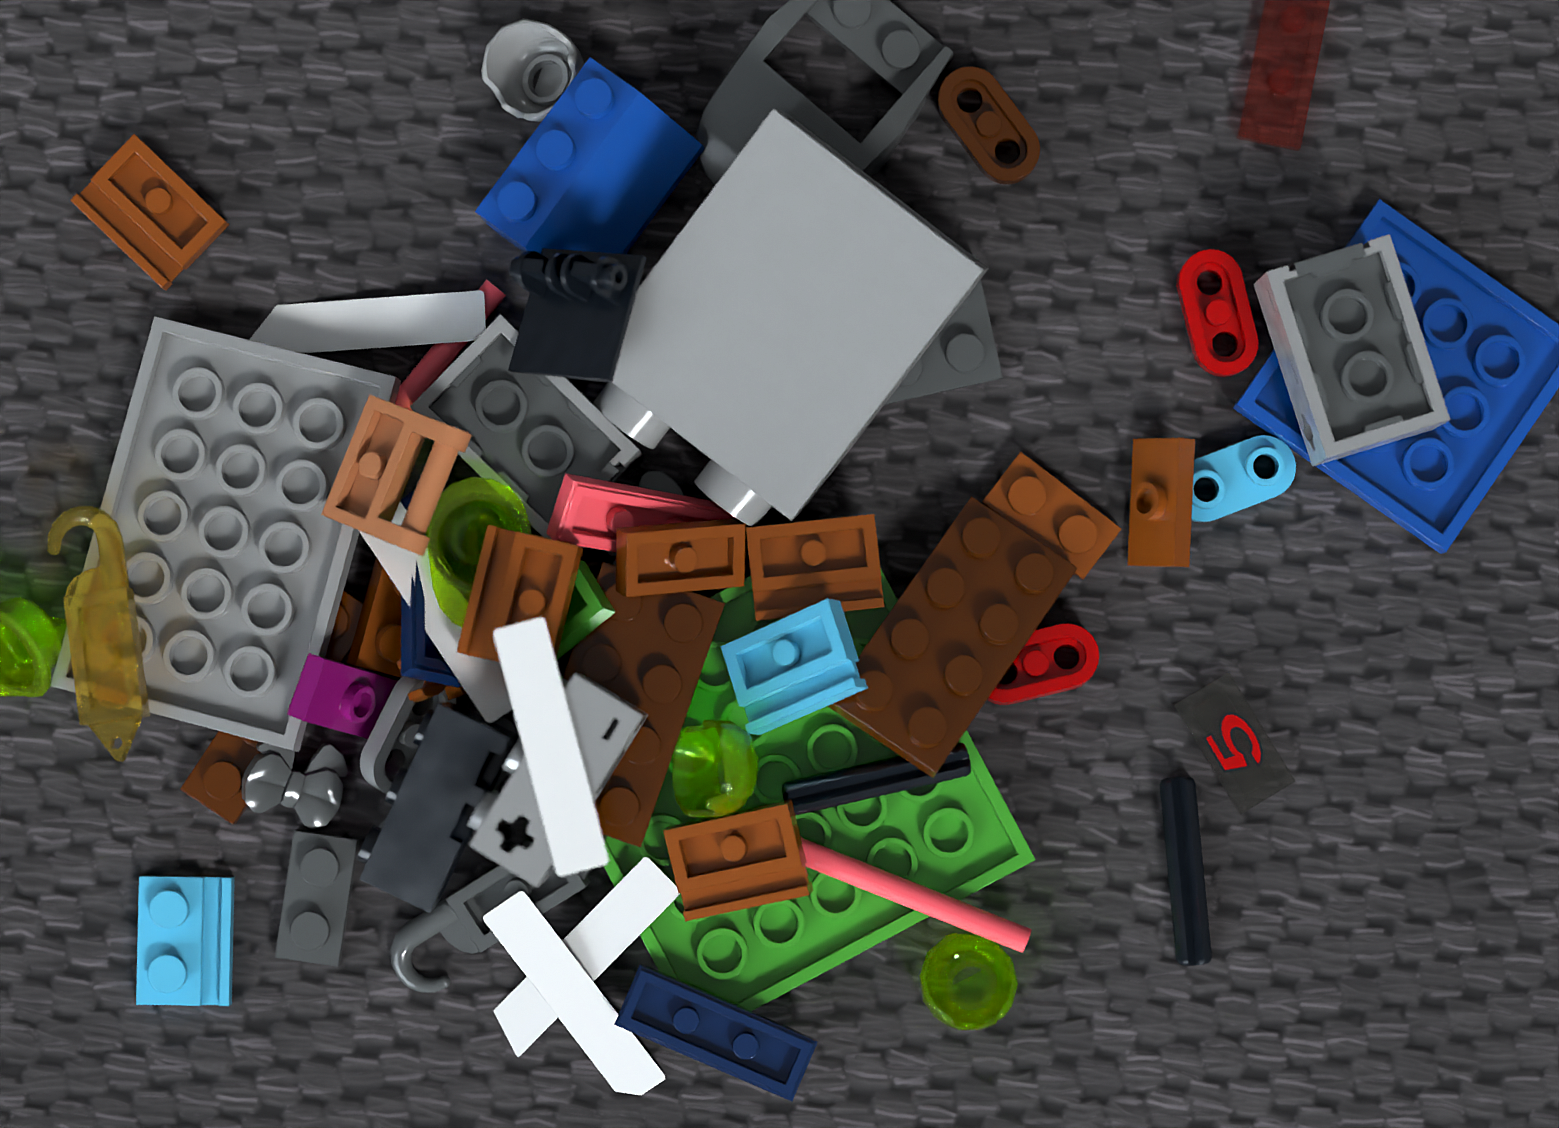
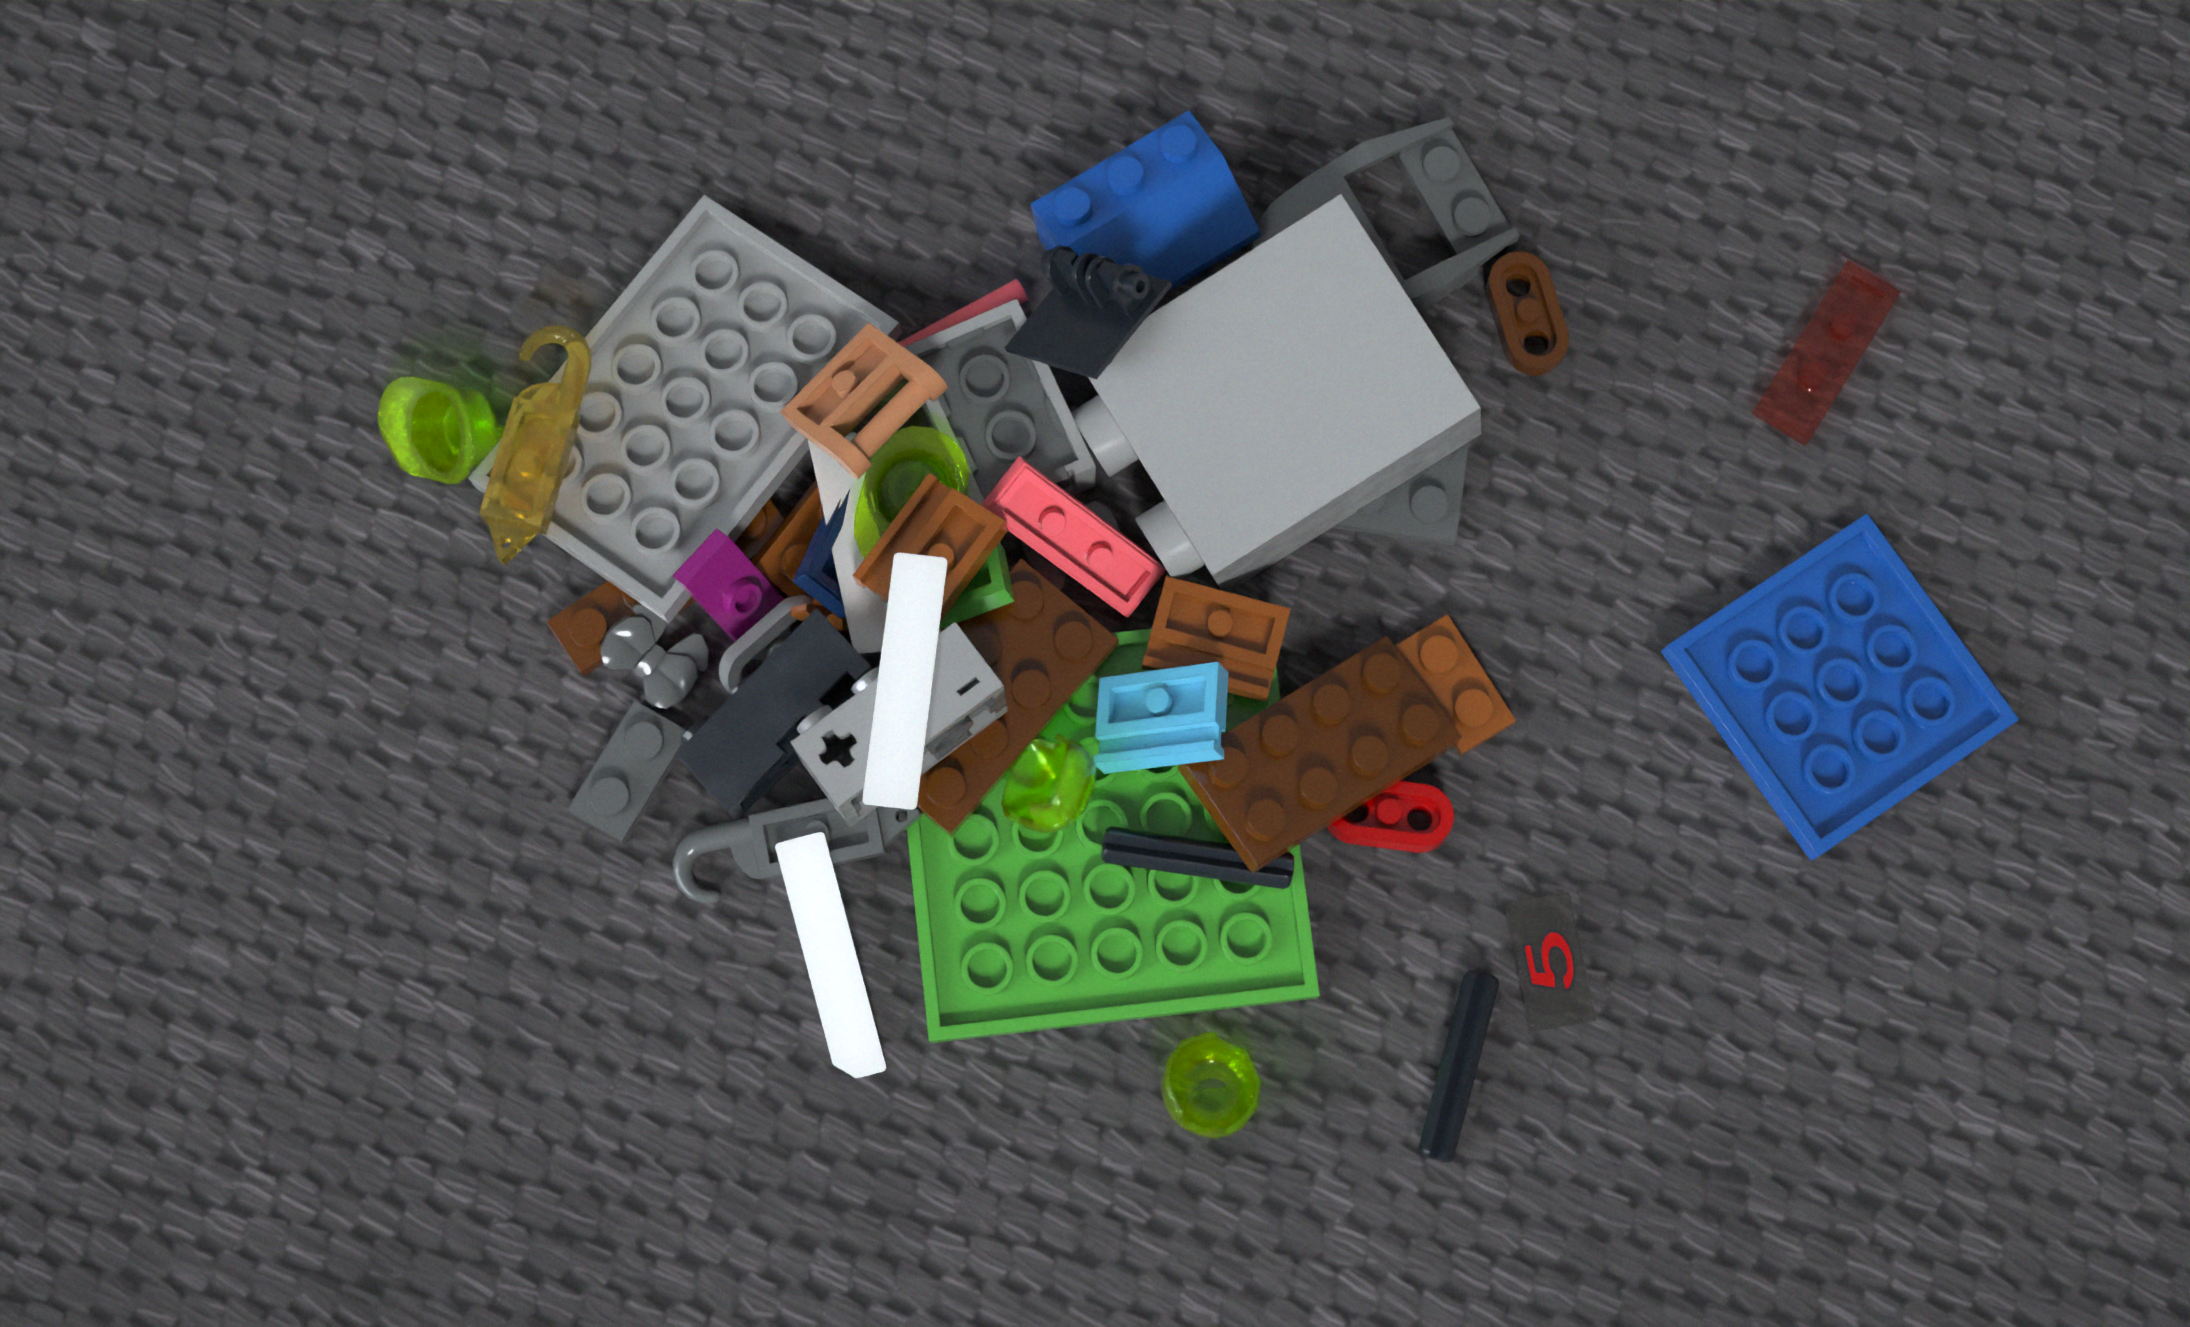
camera: 20 degrees right, 10 degrees down
(149, 212) = (739, 106): dark orange plate -> none
(185, 940) = (491, 763): medium azure plate -> none
(375, 322) = (901, 277): white sticker -> none
(517, 55) = (1125, 93): light grey hair -> none
(594, 944) = (869, 913): white sticker -> none
(680, 557) = (1094, 578): dark orange plate -> none
(716, 1032) = (951, 1038): dark blue tile -> none
(738, 860) = (1037, 880): dark orange plate -> none
(915, 896) = (1185, 977): coral bar -> none
(1161, 502) = (1562, 709): dark orange plate -> none
(1218, 313) = (1678, 561): red plate -> none
(1235, 478) = (1639, 716): medium azure plate -> none
(1351, 350) = (1796, 629): dark grey piece -> none

